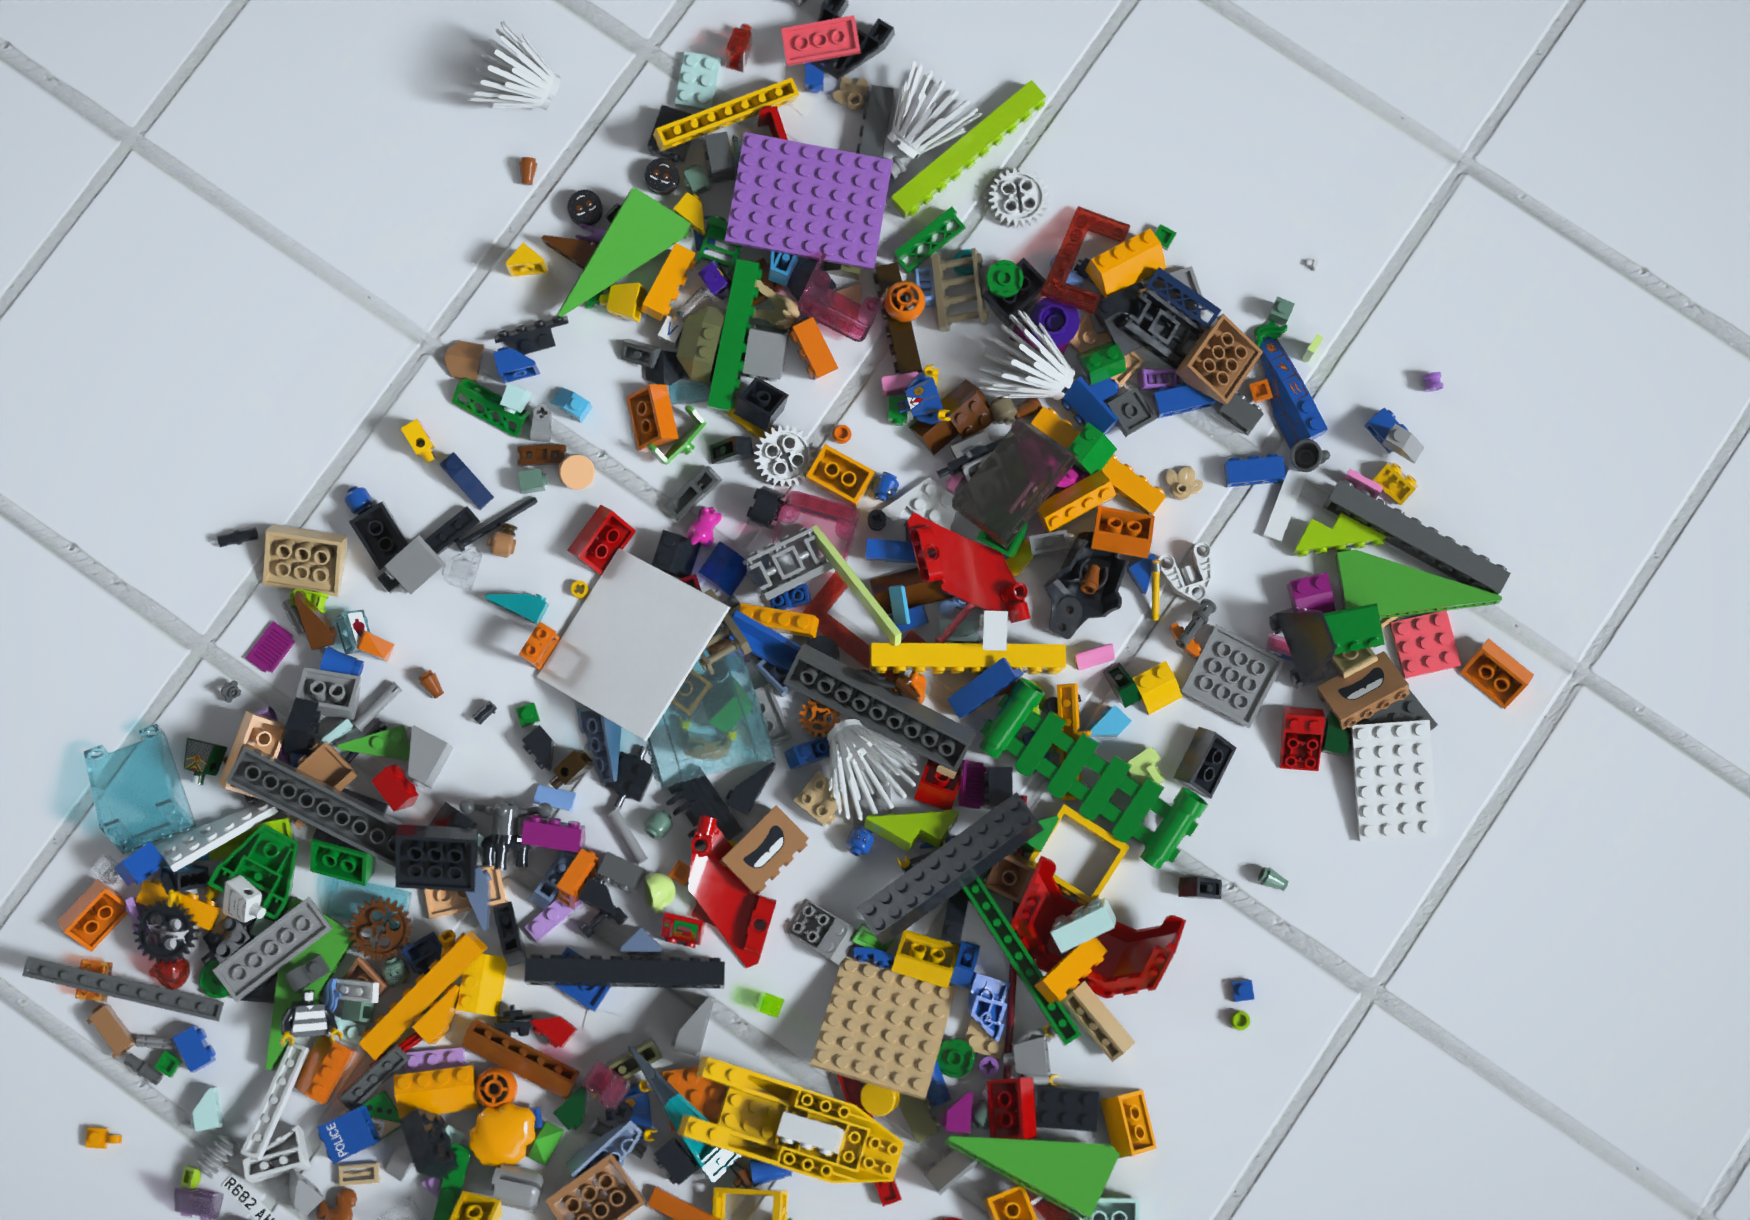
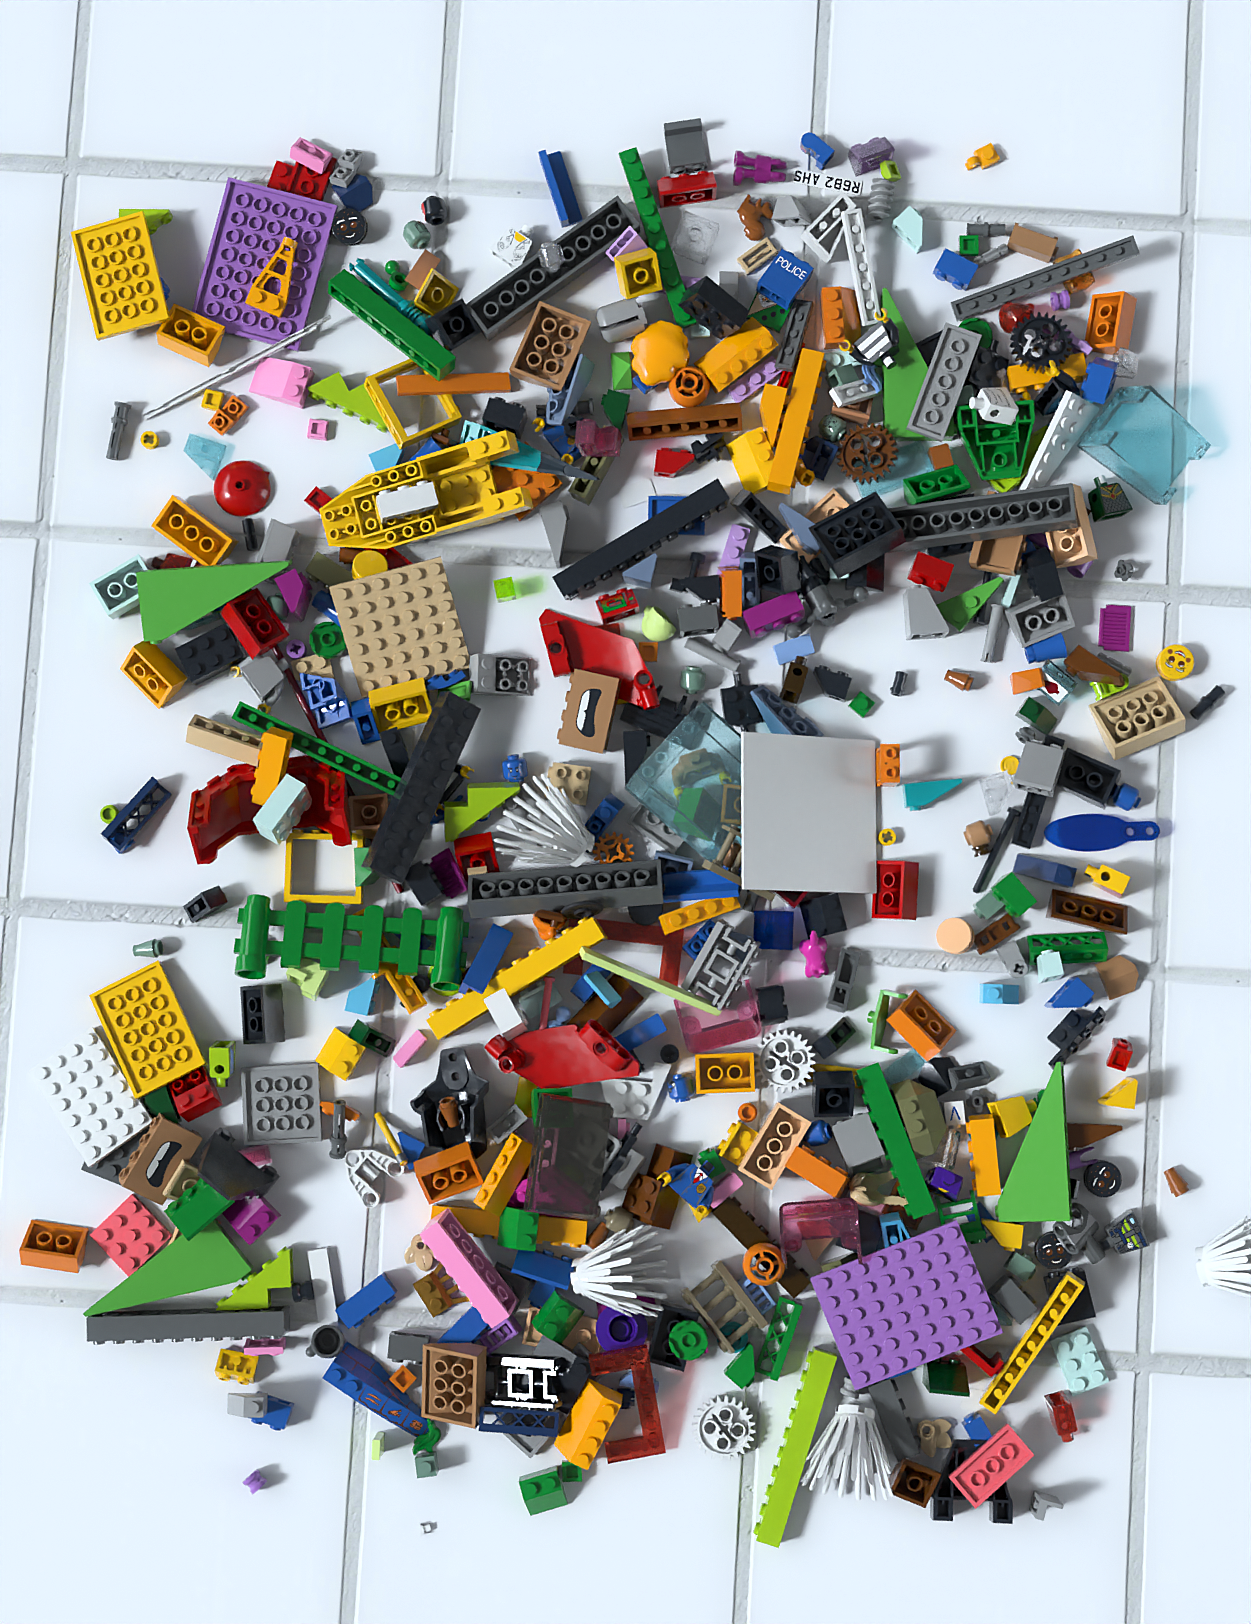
camera: 155 degrees right, 5 degrees up
(123, 963) = (1060, 300): none -> medium lavender wheel
(241, 586) = (1174, 662): none -> yellow head
(309, 973) = (901, 380): dark grey plate -> none
(319, 886) = (940, 456): none -> dark orange panel
(387, 613) = (1036, 715): none -> dark green slope
(402, 486) = (1096, 832): none -> clear blue plant
(407, 602) = (1025, 734): none -> dark grey plate
(437, 586) = (1010, 764): none -> yellow piece
(454, 425) = (1088, 912): none -> reddish brown slope
(504, 296) = (1120, 1054): none -> red bracket
(506, 474) = (1013, 895): none -> green slope
(524, 870) = (777, 569): none -> black brick
(596, 154) = (1124, 1234): none -> torso
(605, 842) = (726, 636): none -> light grey slope
(632, 174) = (1080, 1234): none -> dark grey connector
(646, 334) = (977, 1106): none -> dark grey plate
(794, 382) = (818, 1133): none -> blue head
(805, 1190) = (387, 457): none -> medium azure slope
(813, 126) = (946, 1377): none -> dark green slope
(836, 392) = (774, 1145): none -> light nougat slope
(865, 415) = (737, 1143): none -> yellow bracket
(890, 65) = (913, 1482): none -> reddish brown slope
(890, 1122) = (348, 554): none -> dark orange cone
(970, 1195) = (251, 540): none -> black piece
(973, 235) = (742, 1368): none -> green slope
(1151, 442) = (469, 1268): none -> bright pink brick
(1194, 444) = (434, 1292): none -> pearl gold plate
(1196, 236) = (543, 1490): none -> green slope
(1214, 1012) = (133, 807): none -> dark blue fence
(1262, 742) = (222, 1054): none -> lime torso
(1303, 510) = (302, 1291): none -> black wheel
(1312, 808) = (147, 1029): none -> yellow plate

